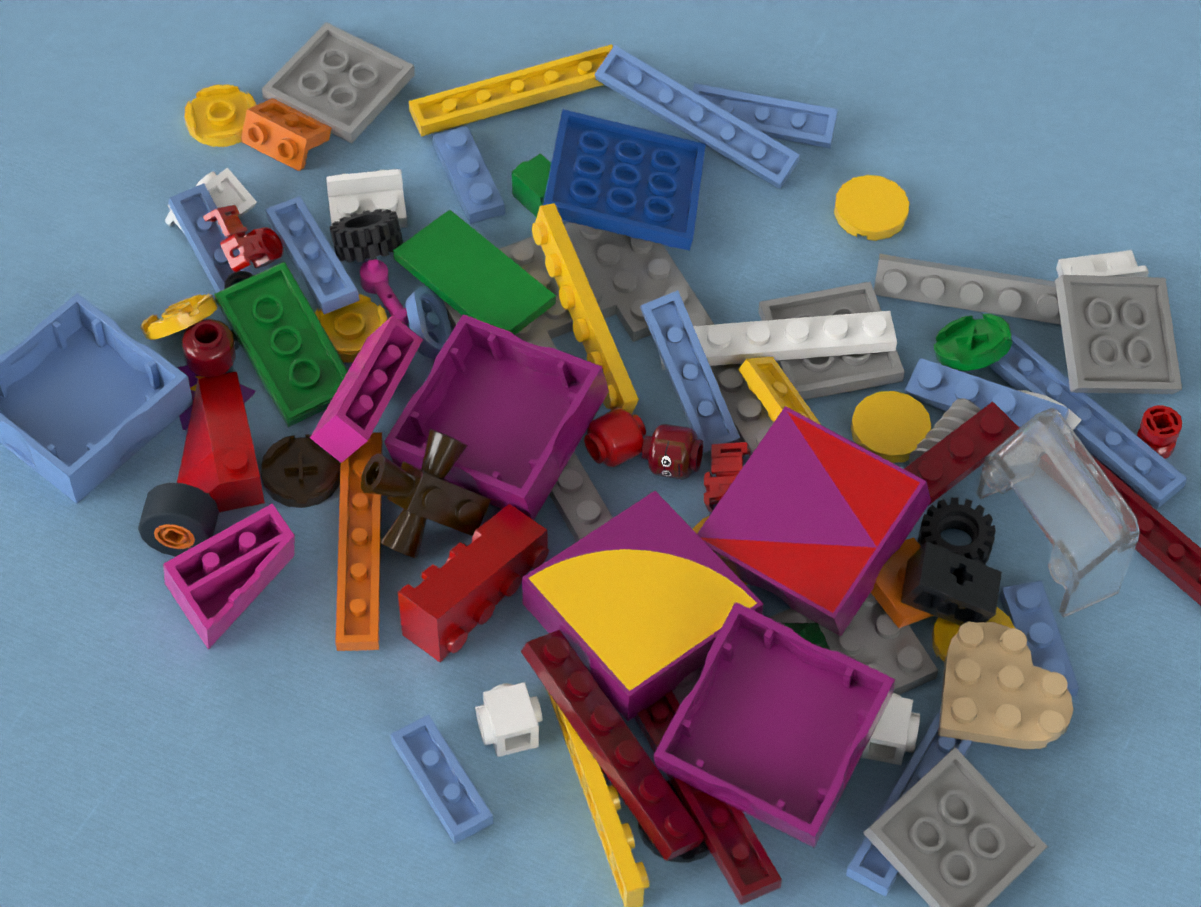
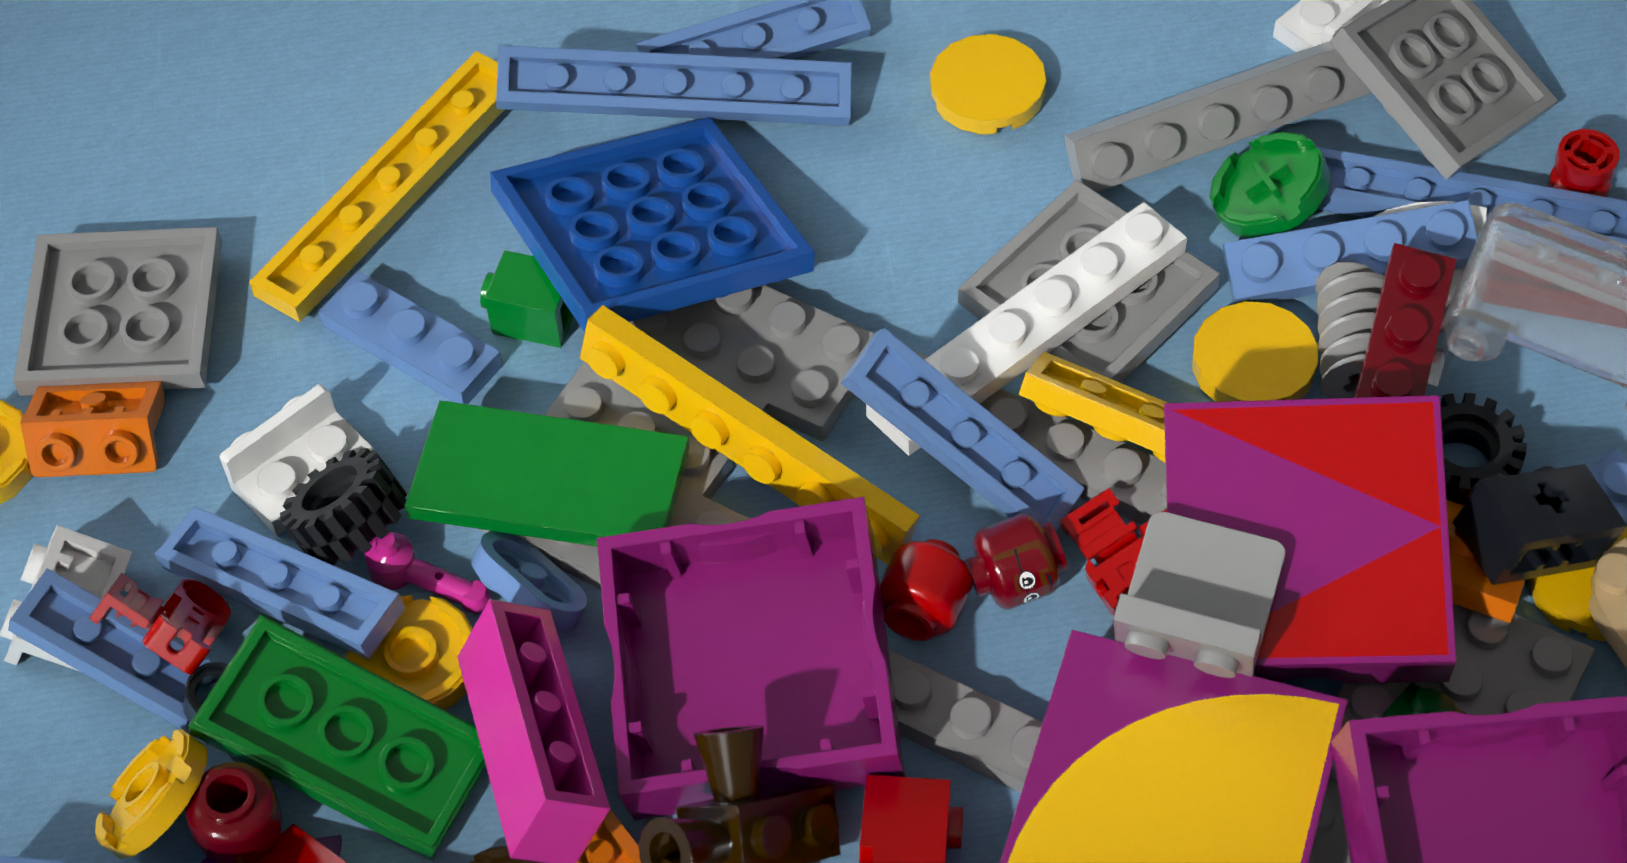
camera: 30 degrees left, 0 degrees up
(726, 509) = (1200, 595): none -> light grey bracket

